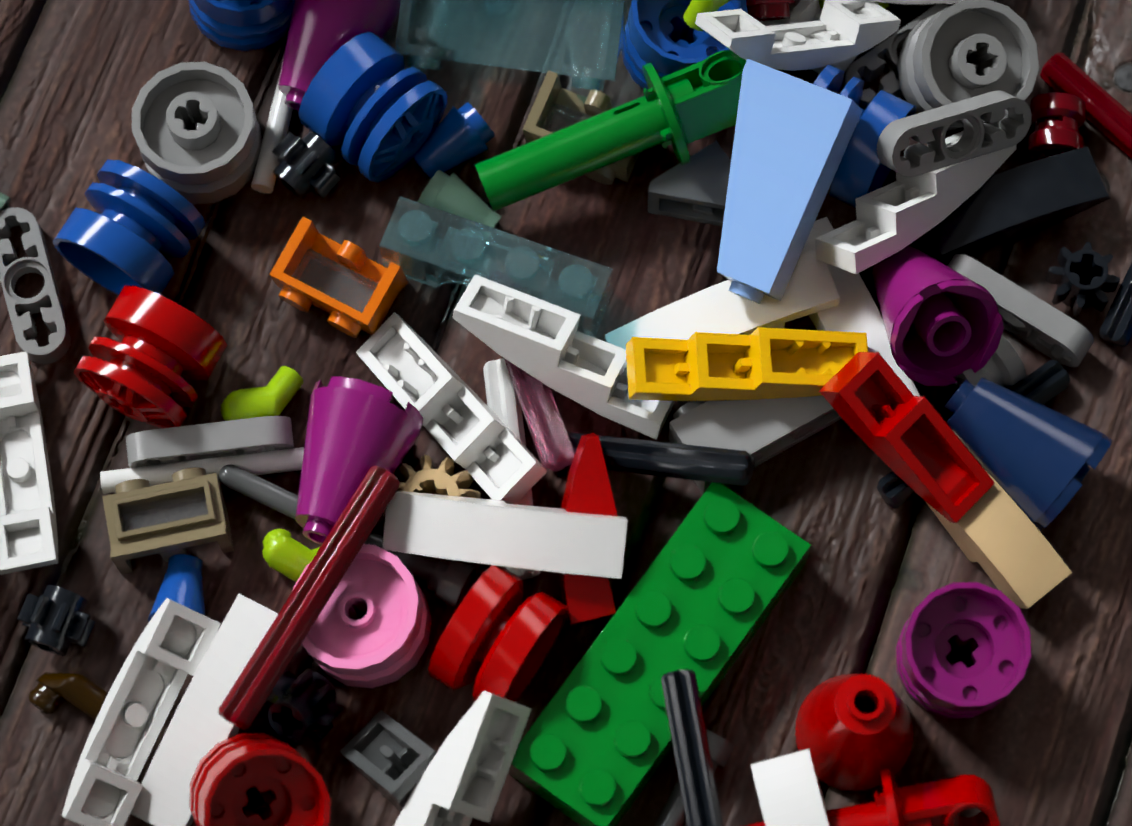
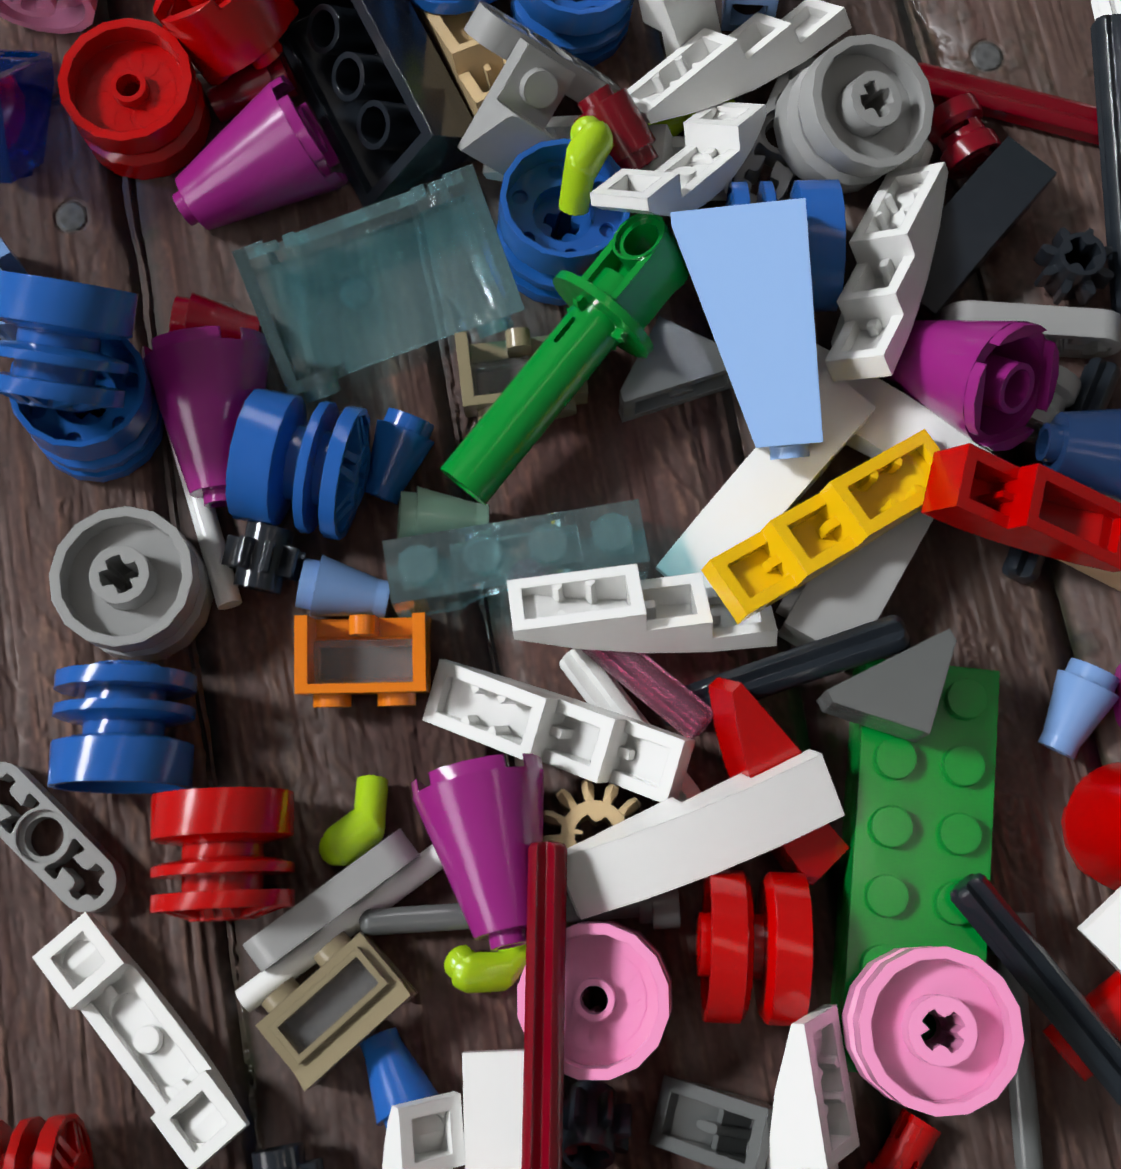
camera: 30 degrees left, 5 degrees up
(347, 217) = (340, 590): none -> medium blue cone
(574, 714) = (974, 1039): none -> bright pink wheel
(712, 505) = (897, 693): none -> dark grey slope
(866, 616) = (1077, 706): none -> medium blue cone
(933, 124) = (877, 189): light grey beam -> none

